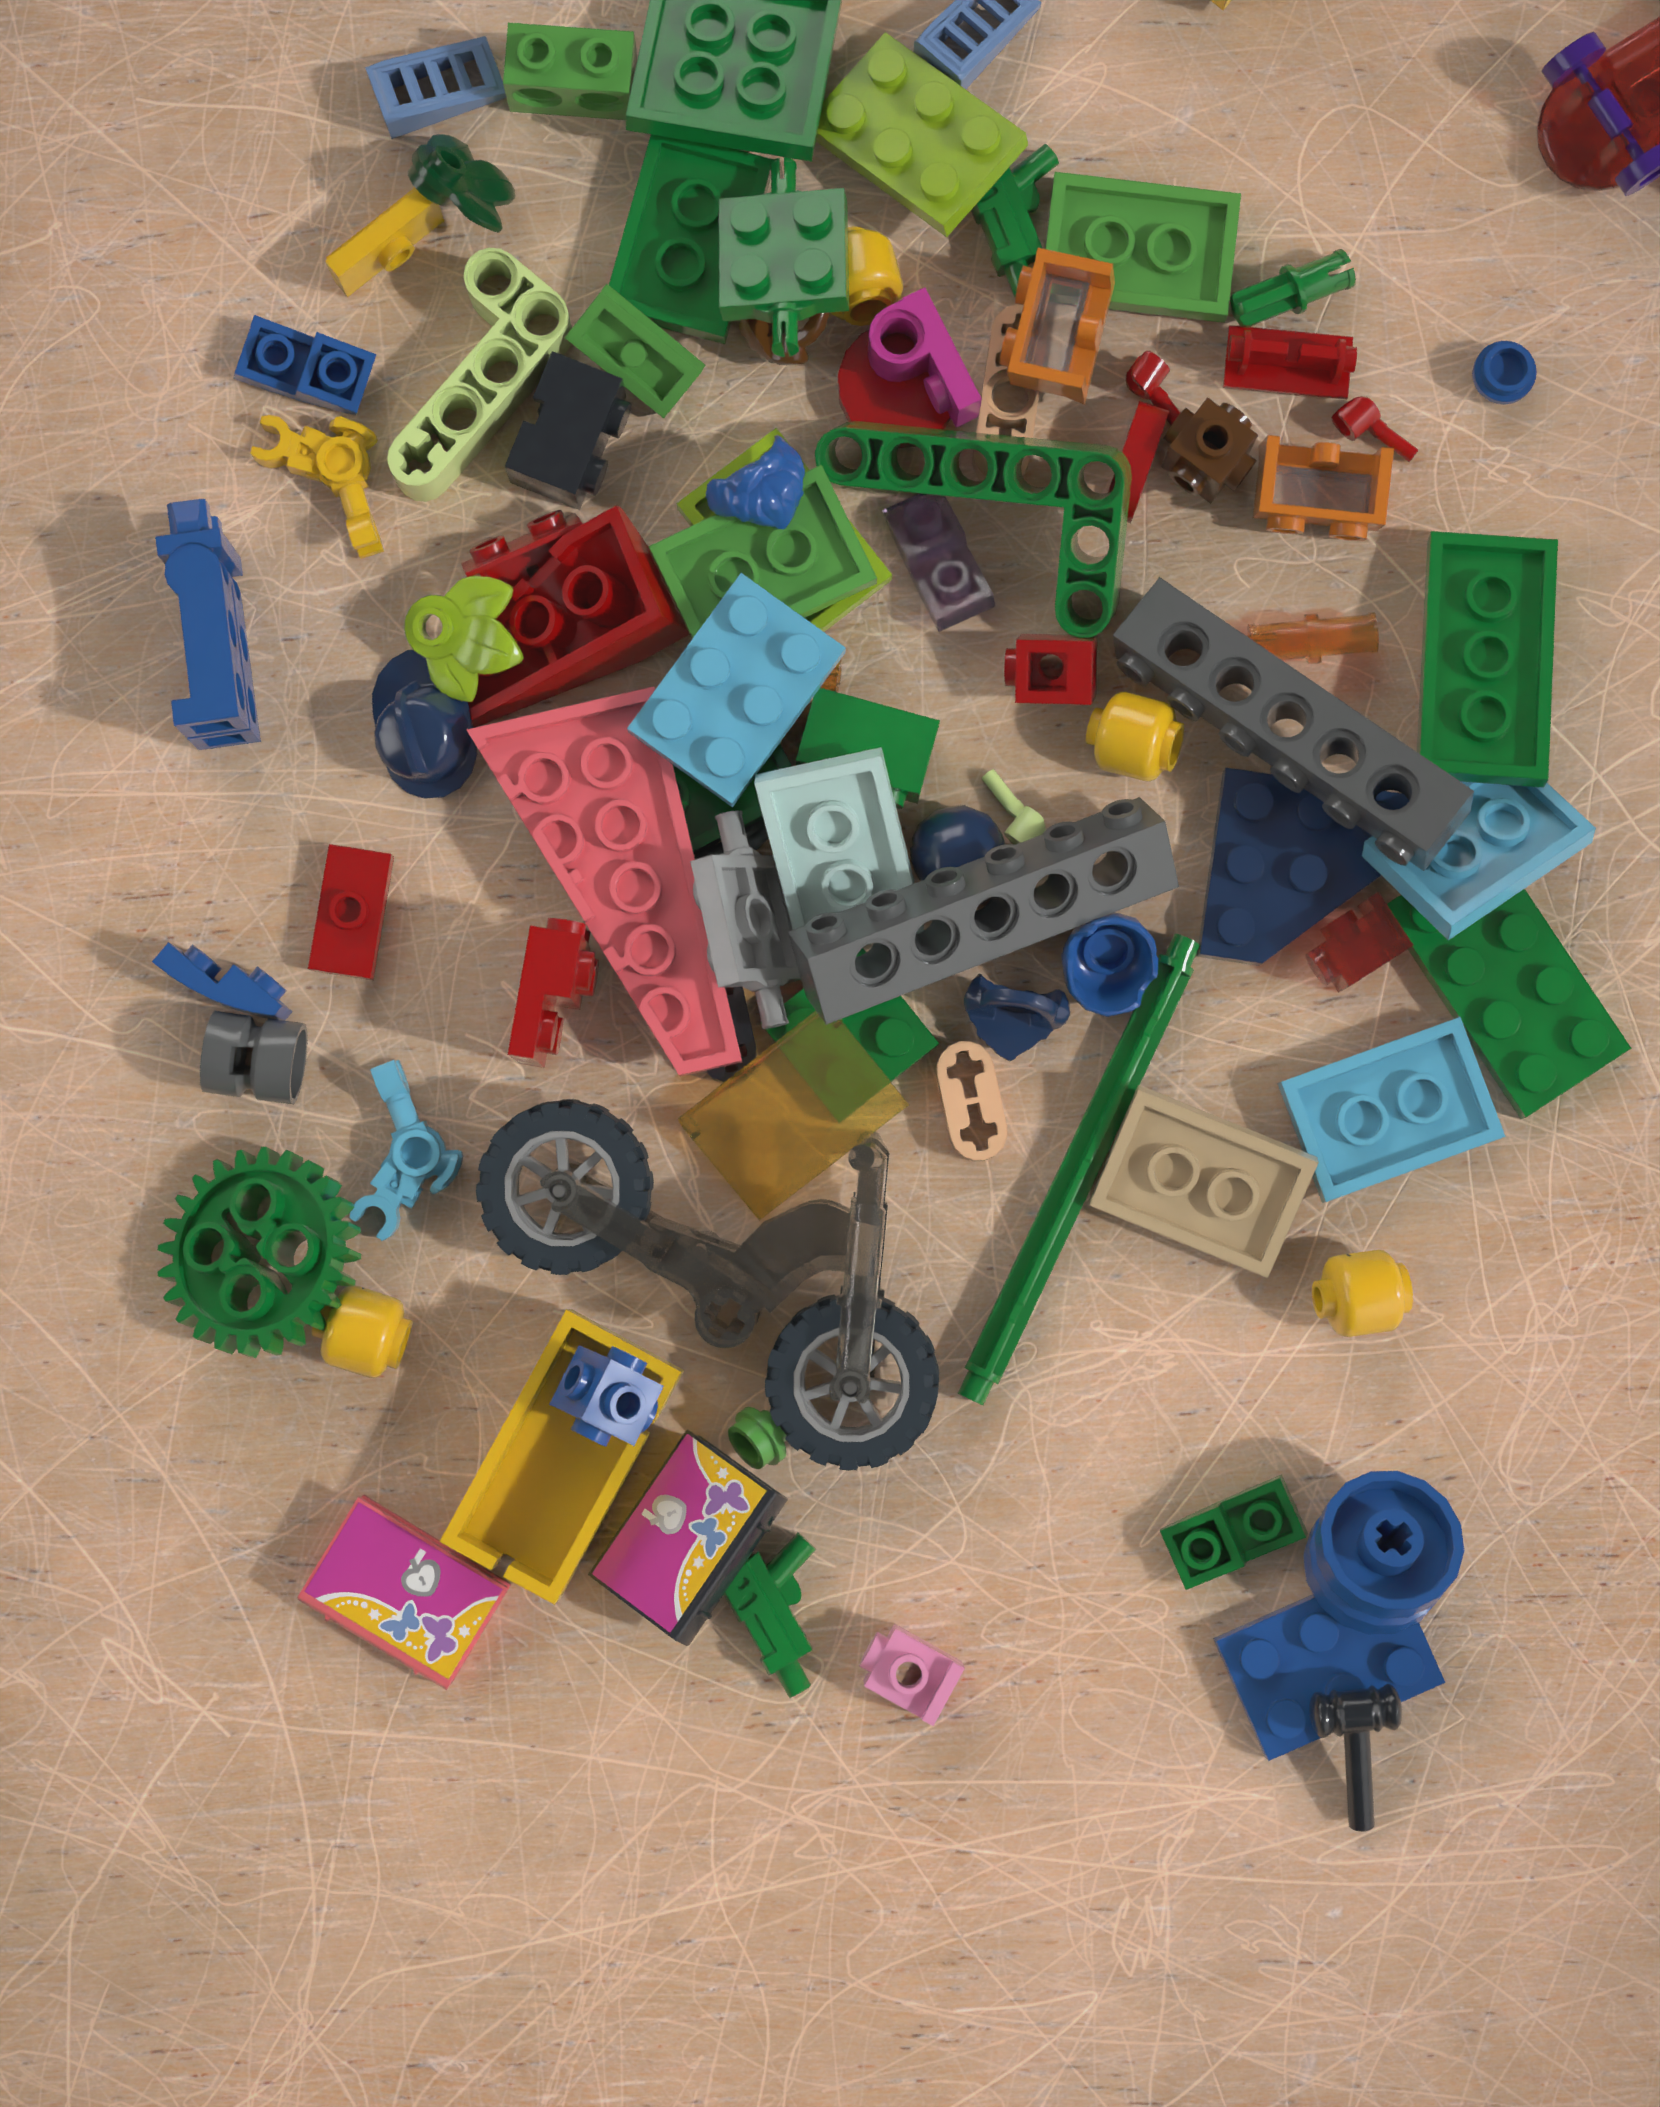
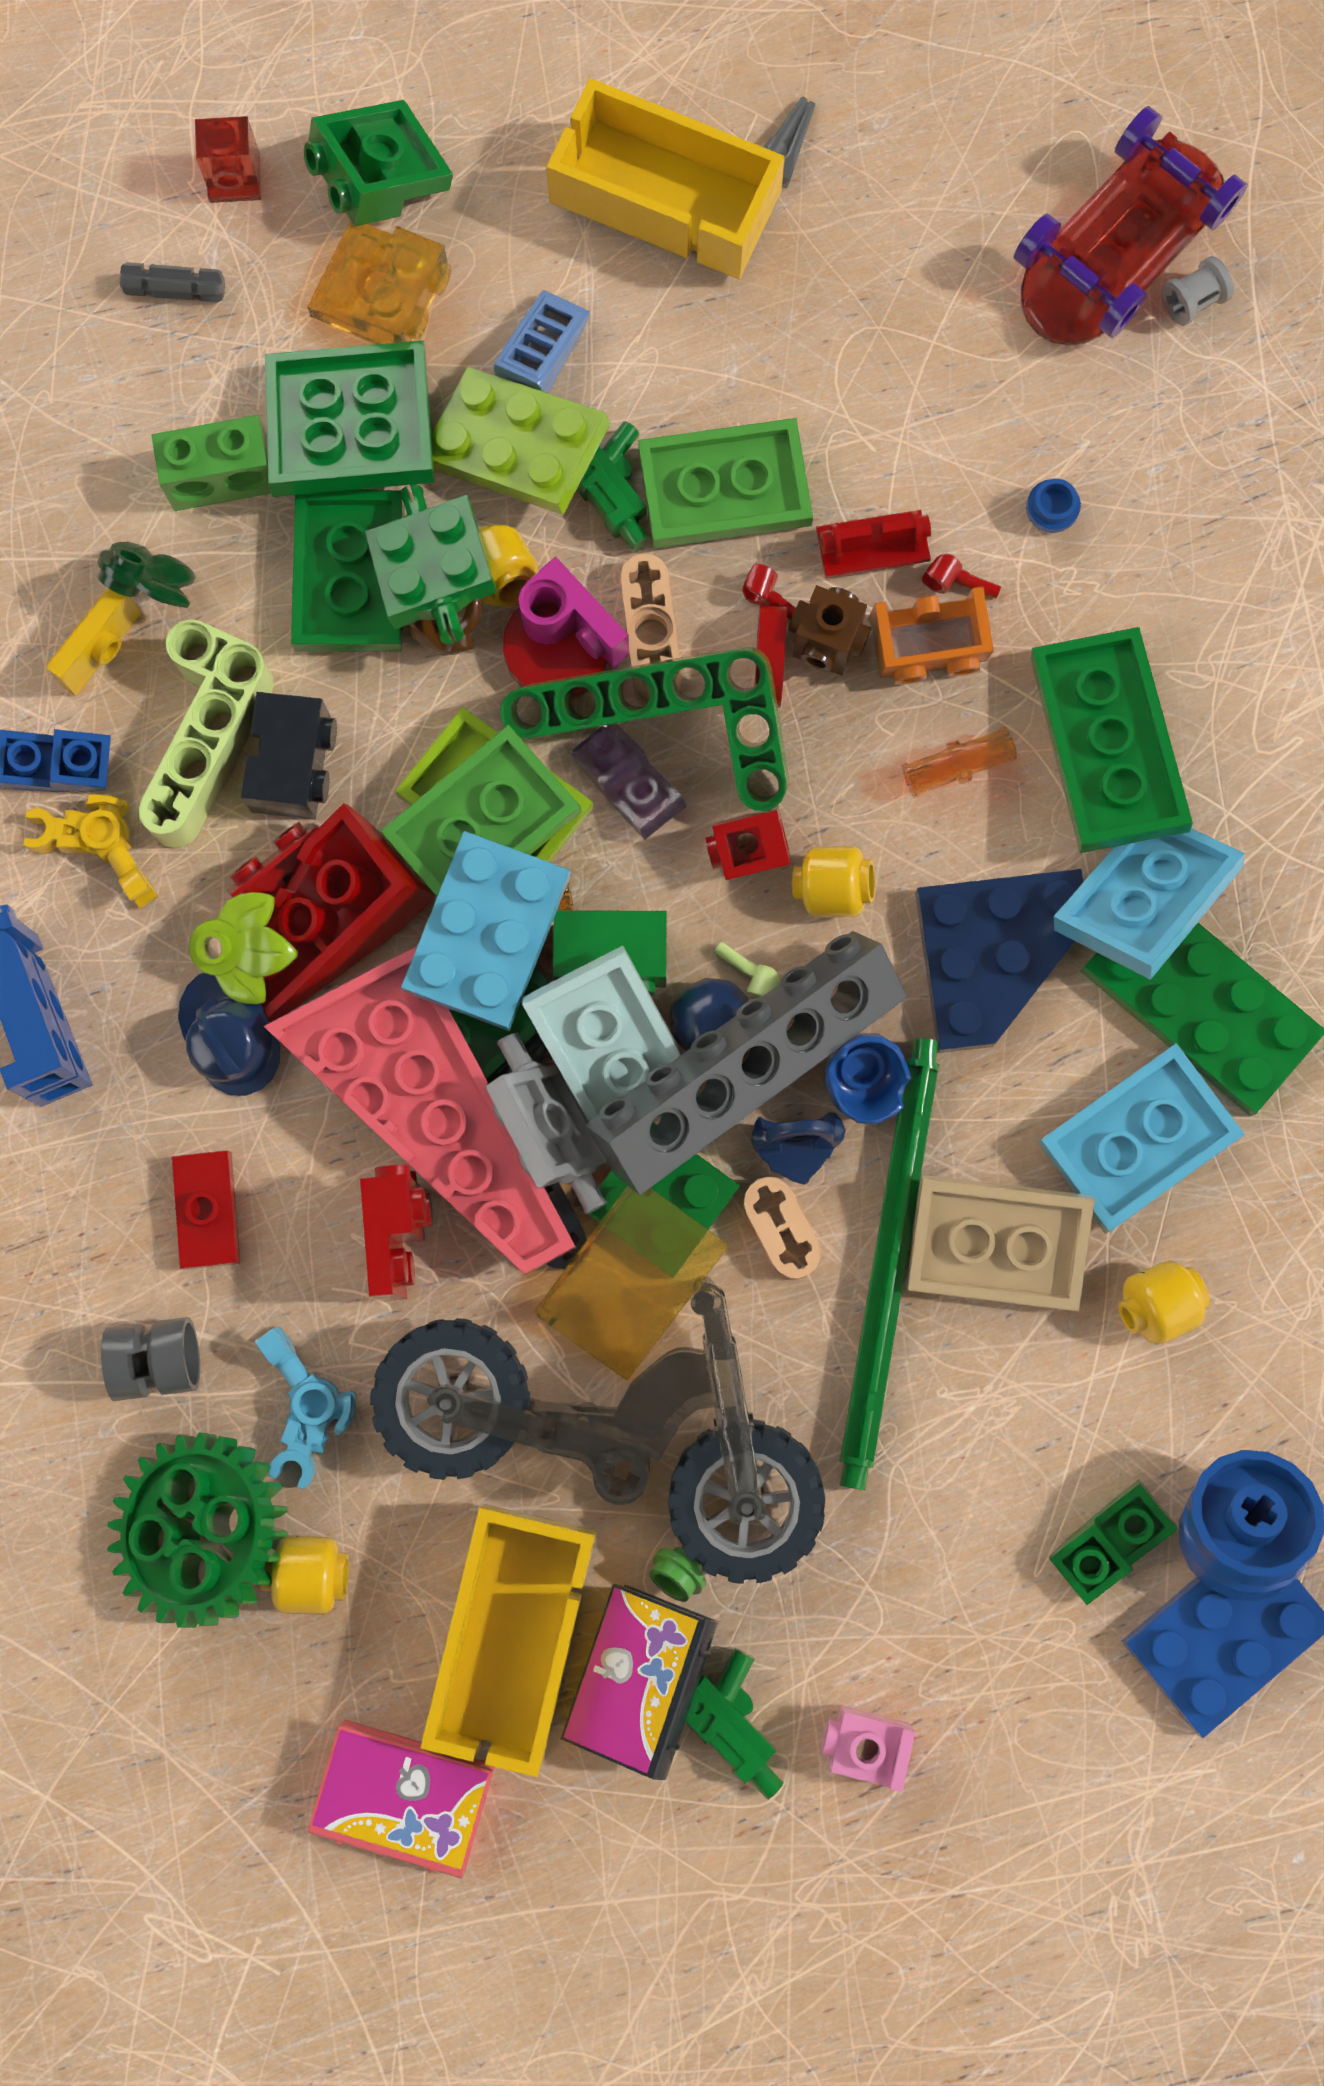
camera: 10 degrees left, 5 degrees down
(248, 993) = (123, 1303): blue slope -> none
(415, 66) = (102, 528): medium blue slope -> none
(607, 1395) = (535, 1576): blue brick -> none
(635, 349) = (328, 673): bright green plate -> none
(763, 490) = (465, 758): blue piece -> none
(1059, 324) = (676, 558): orange window -> none
(1173, 621) = (840, 777): dark grey brick -> none
(1291, 289) = (860, 484): green axle -> none
(1356, 1715) = (1267, 1679): black piece -> none
(1357, 945) = (1072, 1006): clear red brick -> none

